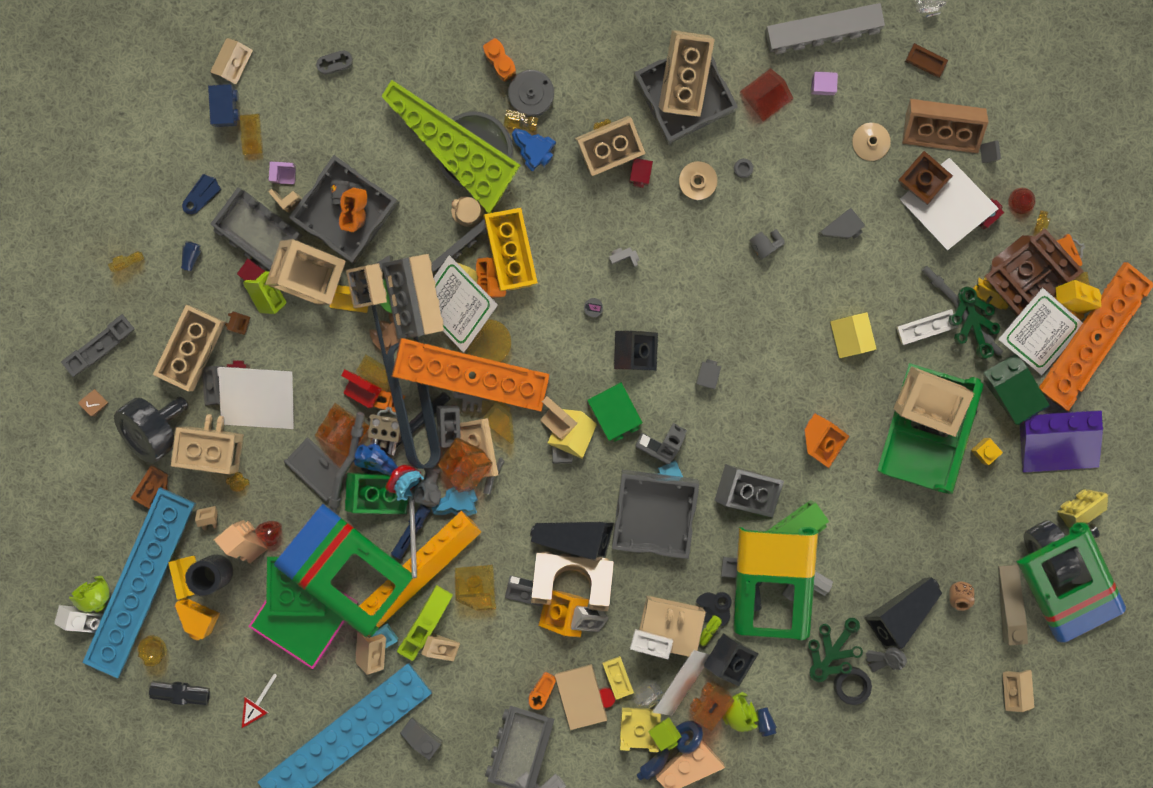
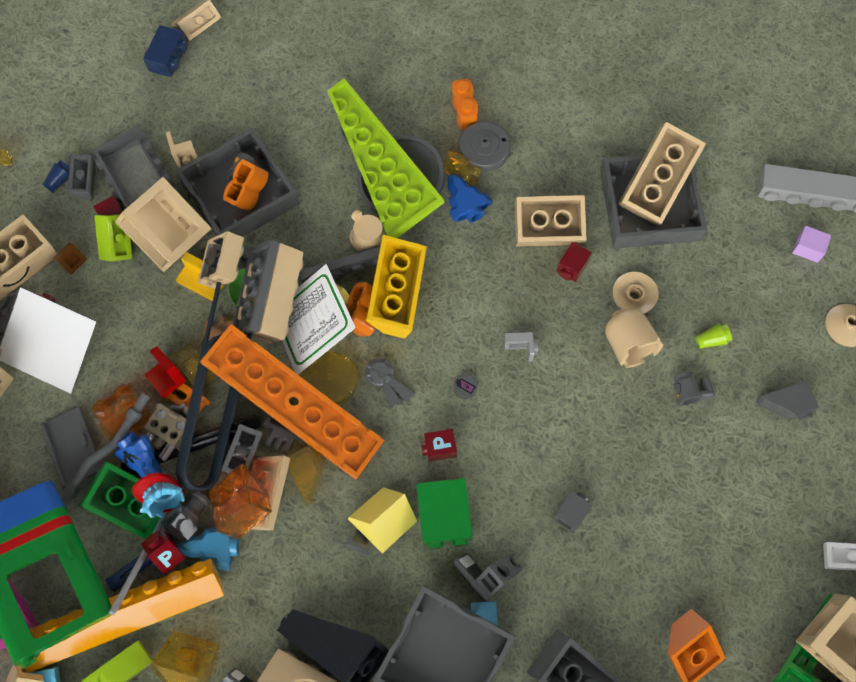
camera: 25 degrees right, 20 degrees down
(201, 194) = (102, 126): dark blue piece -> none
(210, 249) = (81, 176): none -> dark grey slope
(251, 134) = (180, 90): clear yellow slope -> none
(282, 173) = (192, 129): lavender panel -> none
(333, 57) = (296, 54): dark grey beam -> none
(426, 520) = (162, 551): none -> dark red brick
(489, 480) = (263, 534): dark grey plant -> none
(525, 323) = (380, 373): none -> dark grey piece
(557, 419) = (372, 495): tan panel -> none
(591, 362) = (439, 445): none -> dark red brick
(635, 350) = (496, 451): black slope -> none
(706, 220) = (632, 337): none -> tan cylinder
(743, 168) = (691, 300): dark grey tile -> none
(767, 94) = (743, 235): clear red slope -> none
(770, 193) = (715, 336): none -> lime cone
(853, 335) = (766, 532): light yellow slope -> none

